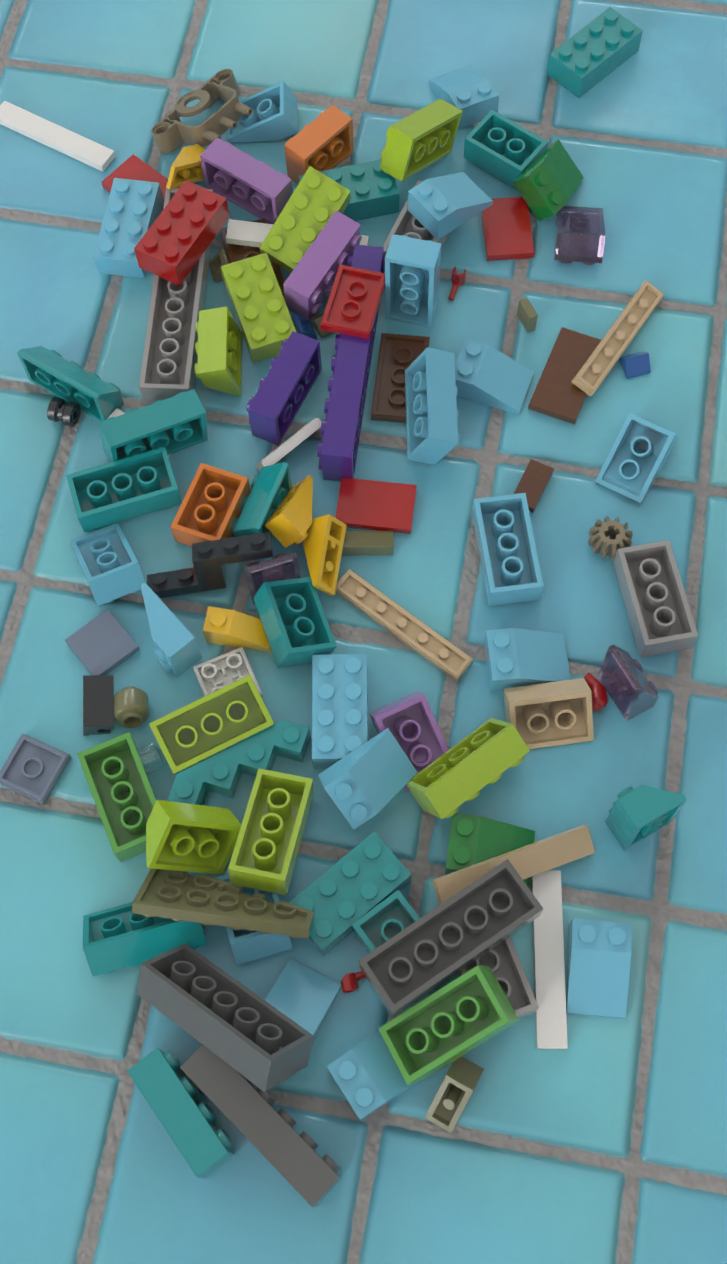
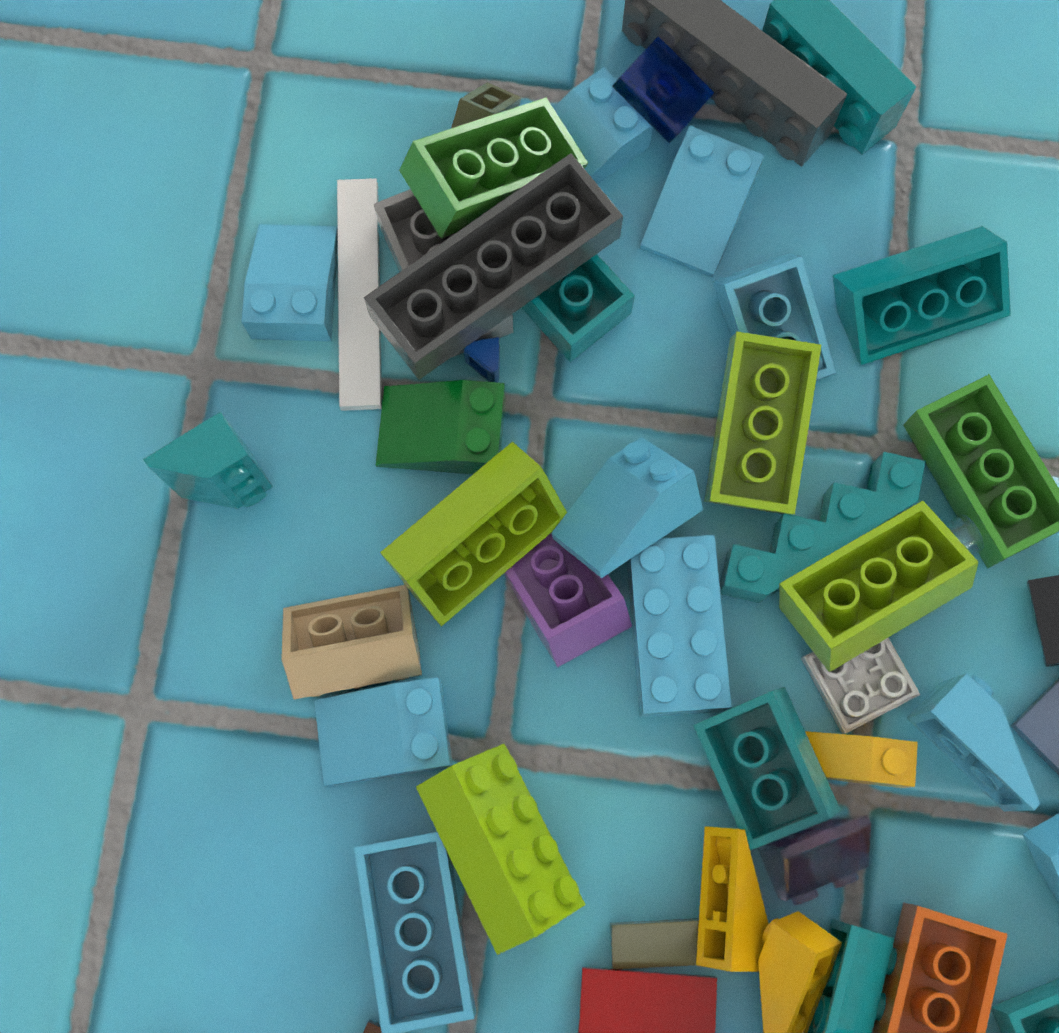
camera: 175 degrees right, 10 degrees up
(131, 707) = (1006, 618): olive head -> none
(190, 837) = (882, 406): lime slope -> none
(209, 564) = (922, 868): black bracket -> none
(217, 903) = (857, 315): olive wing -> none
(225, 1016) = (799, 153): dark grey brick -> none
(316, 1097) = (663, 89): none -> clear blue tile
(349, 981) = (629, 249): red hand -> none
(351, 890) = (640, 354): teal brick -> none
(403, 625) = (590, 791): tan tile -> none
(456, 586) = (500, 847): none -> lime brick
(526, 860) = (402, 398): tan tile -> none
(599, 692) = (271, 684): red arm -> none
(608, 529) = (219, 969): dark tan gear -> none
(626, 683) = (221, 687): slope -> none
(655, 598) = (168, 846): light grey brick -> none

